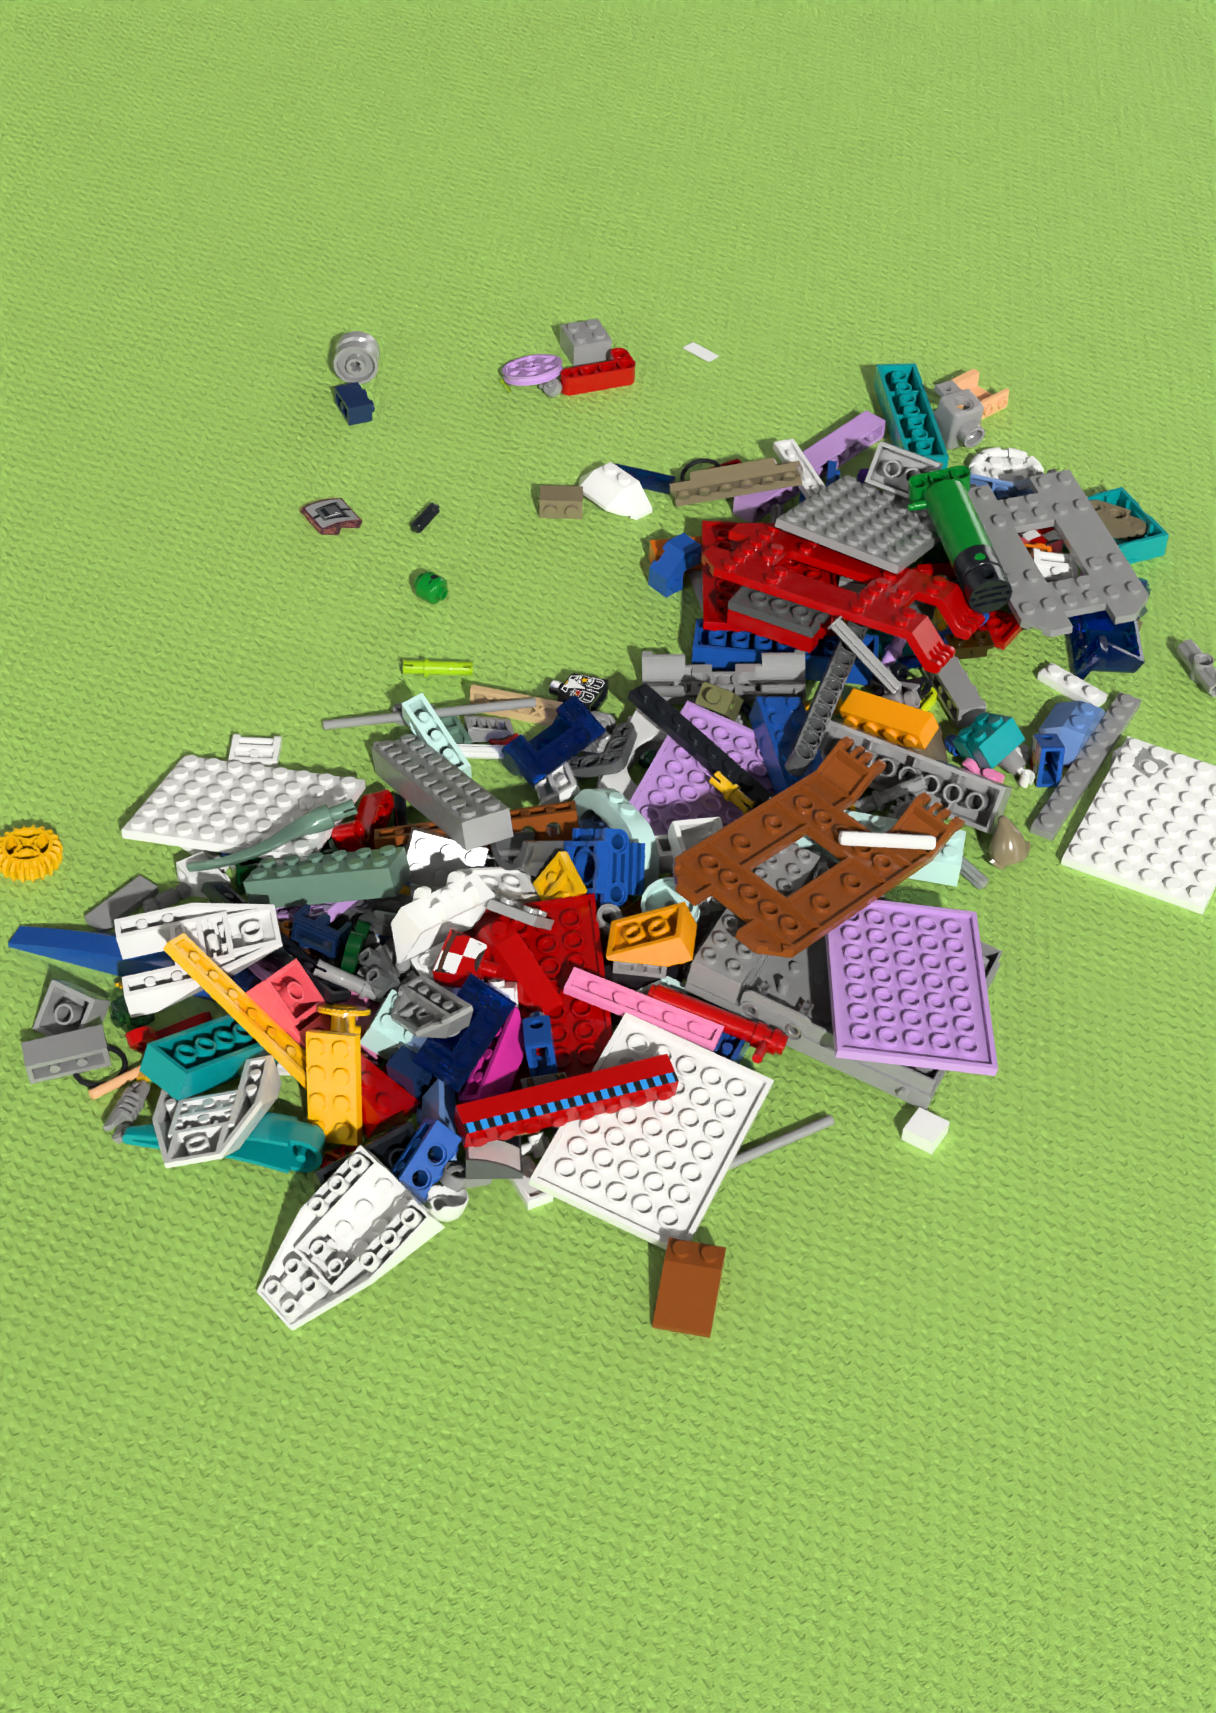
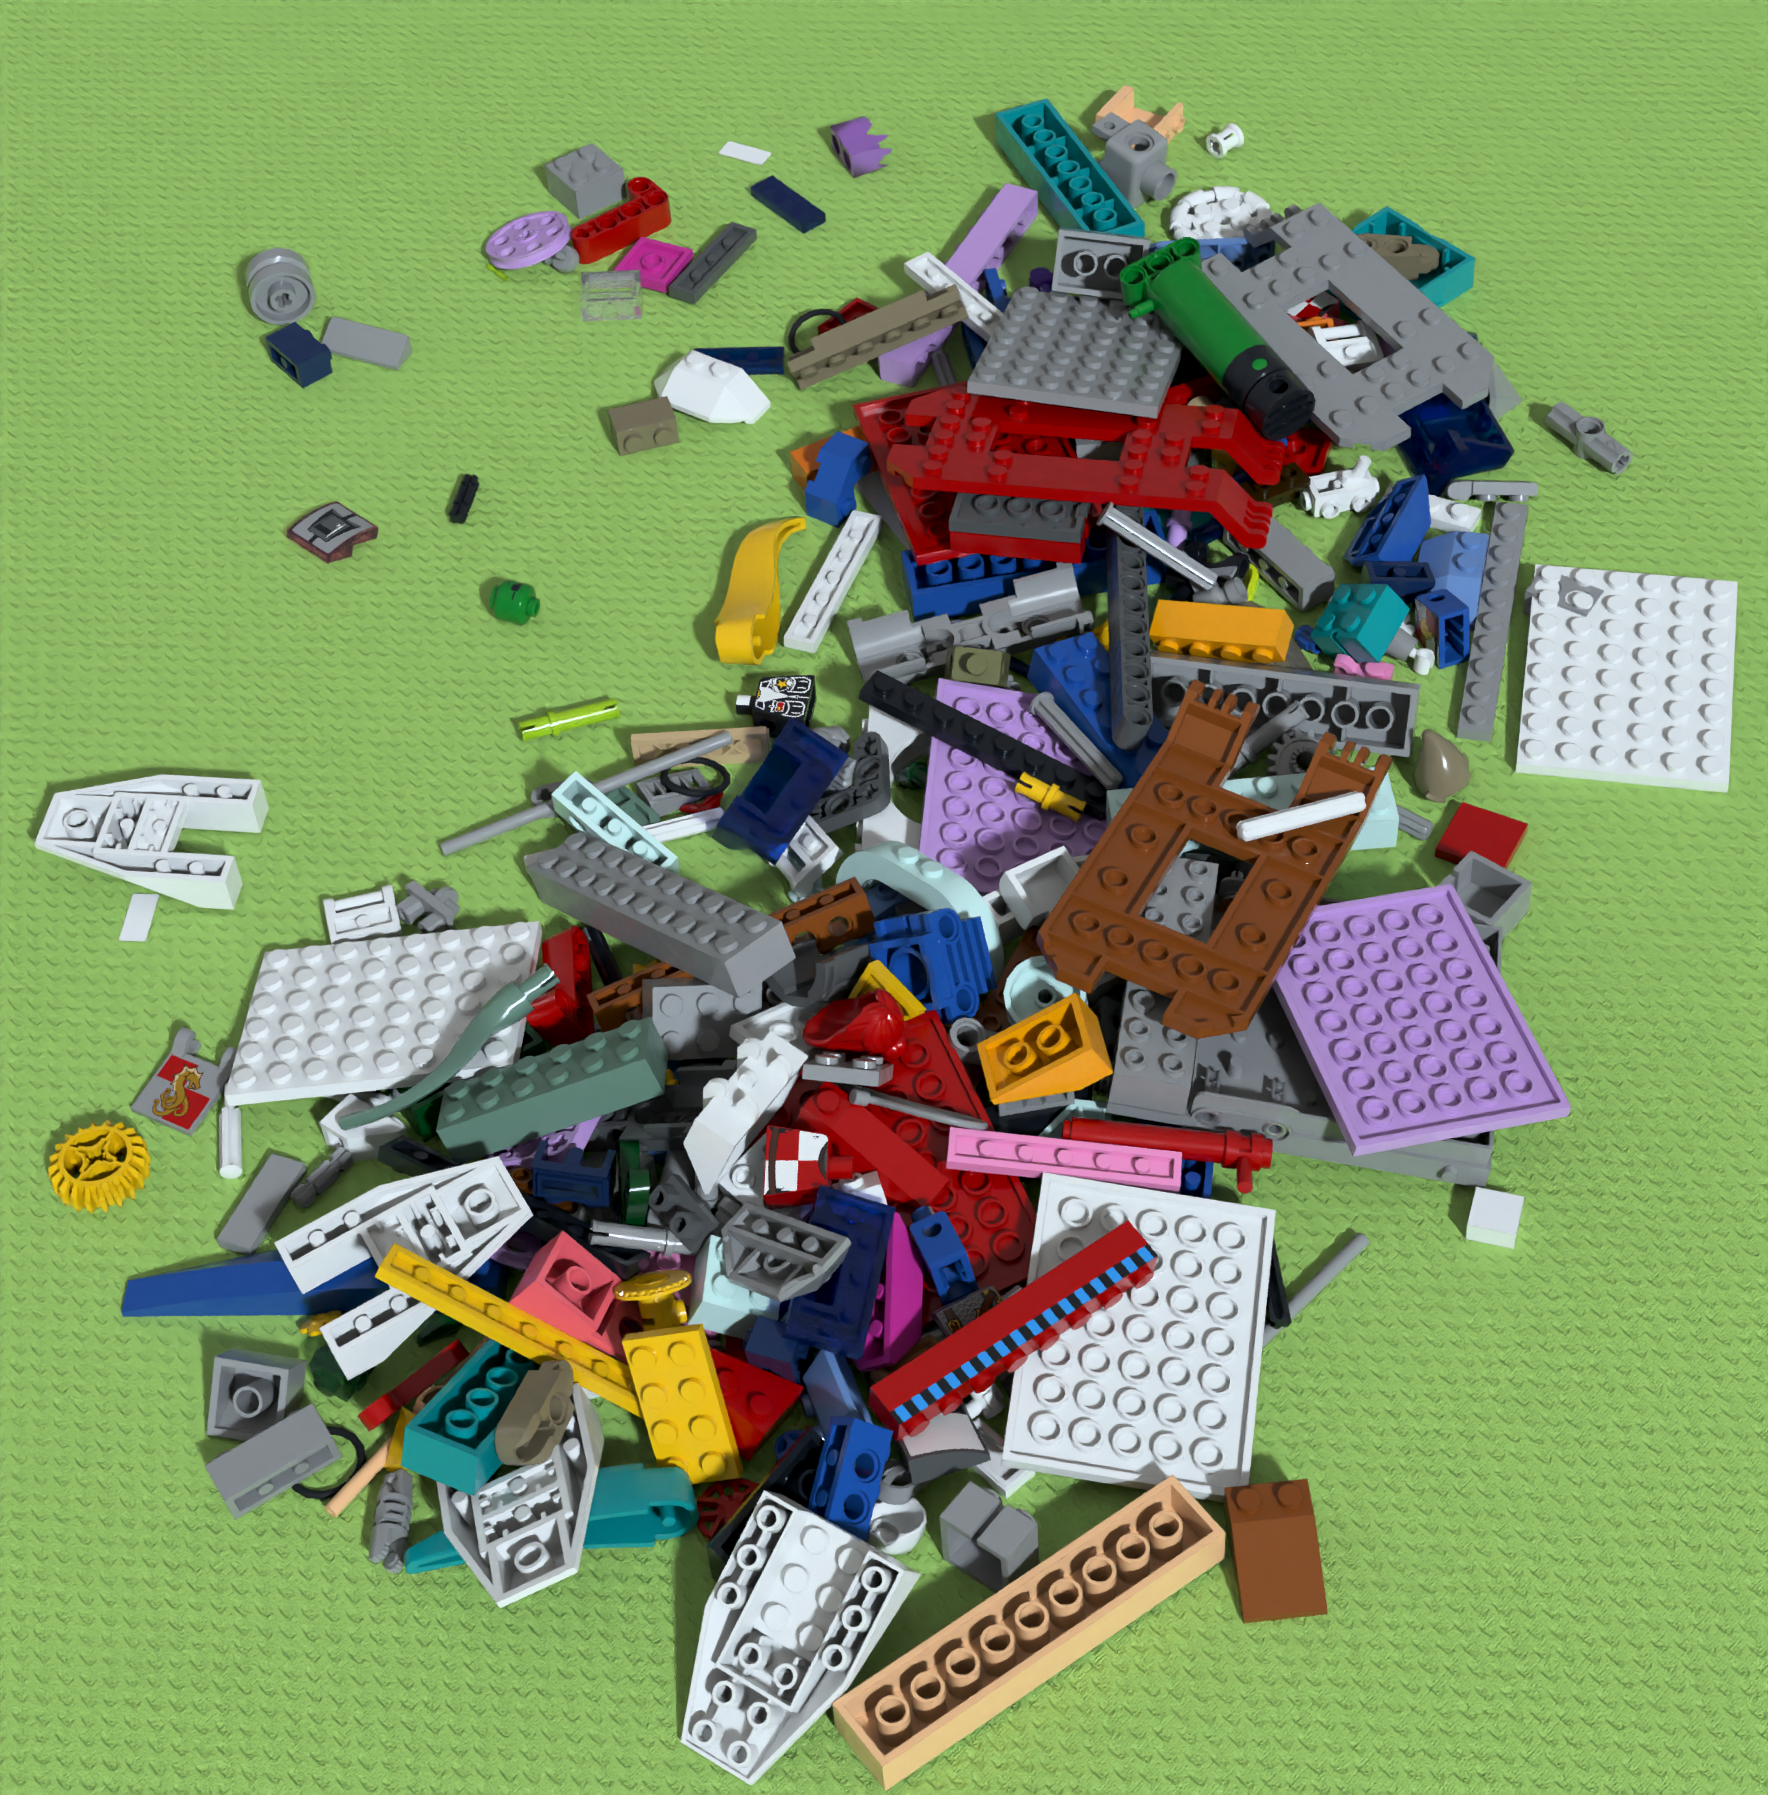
camera: 10 degrees left, 5 degrees up
(100, 821) = (184, 1086): none -> flag
(114, 715) = (139, 917): none -> white sticker
(116, 862) = (230, 1141): none -> white axle
(131, 656) = (135, 826): none -> white wedge
(206, 1005) = (438, 1329): none -> dark green bar
(236, 1063) = (536, 1415): none -> dark tan piece
(302, 757) = (435, 908): none -> light grey hips
(401, 407) = (367, 343): none -> light grey slope
(502, 1226) = (988, 1539): none -> light grey piece
(505, 733) = (699, 793): none -> black piece
(506, 1288) = (1028, 1632): none -> light nougat brick
(523, 932) = (864, 1096): none -> light grey piece
(541, 890) = (860, 1024): none -> red hair
(573, 422) = (612, 303): none -> clear window
(587, 629) = (752, 609): none -> yellow animal
(609, 405) = (657, 261): none -> dark pink plate
(647, 628) = (833, 581): none -> white plate
(649, 413) = (712, 262): none -> dark grey plate
(715, 390) = (788, 204): none -> clear blue tile
(751, 737) = (1045, 707): none -> light grey axle
(757, 1130) = (1276, 1299): none -> black axle
(776, 364) = (856, 148): none -> medium lavender piece
(1005, 930) = (1490, 892): none -> light grey piece
(1014, 658) = (1341, 491): none -> white brick
(1018, 899) = (1482, 832): none -> red tile
(1029, 721) = (1404, 578): none -> dark blue slope
(1030, 421) = (1224, 140): none -> white bush
(1040, 690) = (1394, 525): none -> blue wedge
(1117, 683) = (1488, 489): none -> light grey hinge
(1152, 624) = (1501, 394): none -> light grey slope

